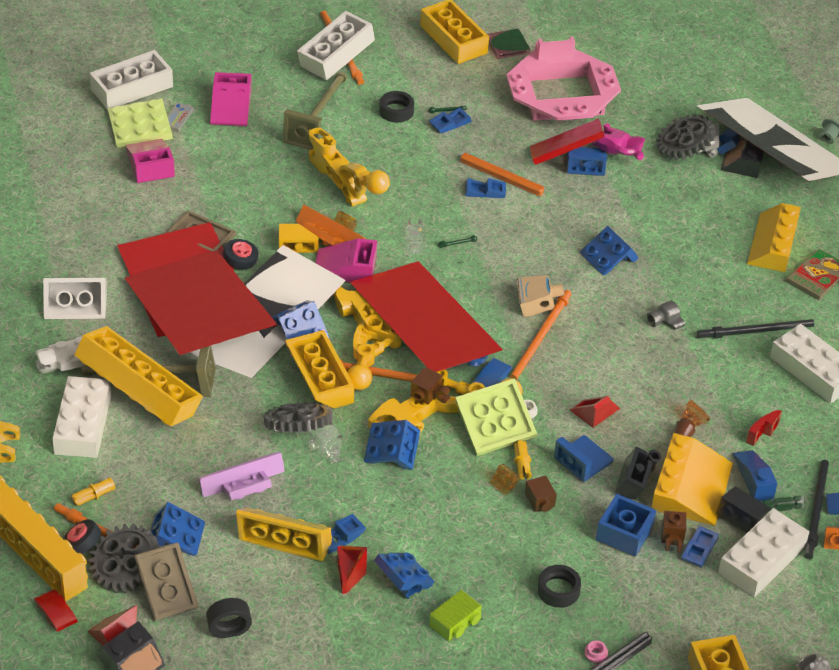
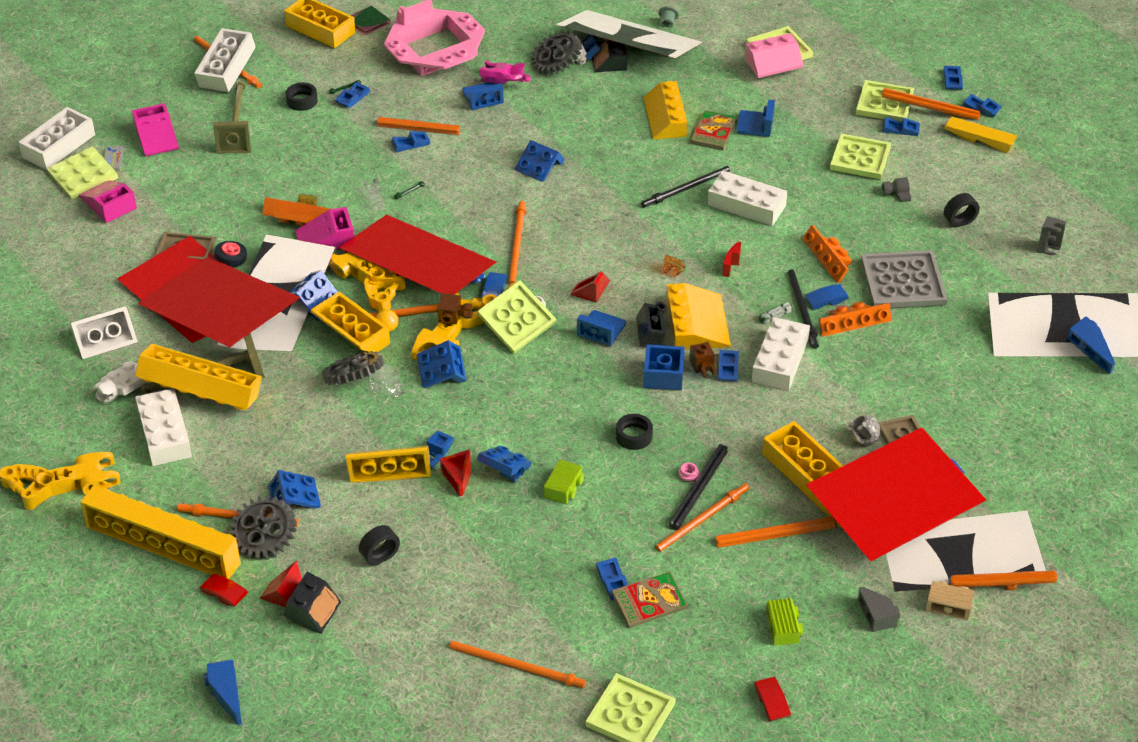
camera: 20 degrees left, 0 degrees up
(83, 535) = (219, 519): black wheel -> none
(93, 491) = (205, 484): yellow axle -> none
(166, 581) = (310, 534): dark tan tile -> none
(243, 478) = (329, 432): lavender bracket -> none
(297, 238) = (274, 226): yellow slope -> none
(347, 176) = (296, 164): yellow piece -> none
(505, 479) = (547, 363): clear orange tile -> none
(522, 459) = (553, 344): yellow axle -> none
(537, 294) = (499, 211): tan torso -> none
(540, 494) = (583, 365): reddish brown brick -> none
(567, 141) = (462, 83): red tile -> none
(668, 313) = (611, 195): dark grey piece -> none
(685, 427) = (670, 277): reddish brown cone -> none
(742, 509) = (748, 326): black brick -> none
(756, 475) = (745, 297): blue slope -> none

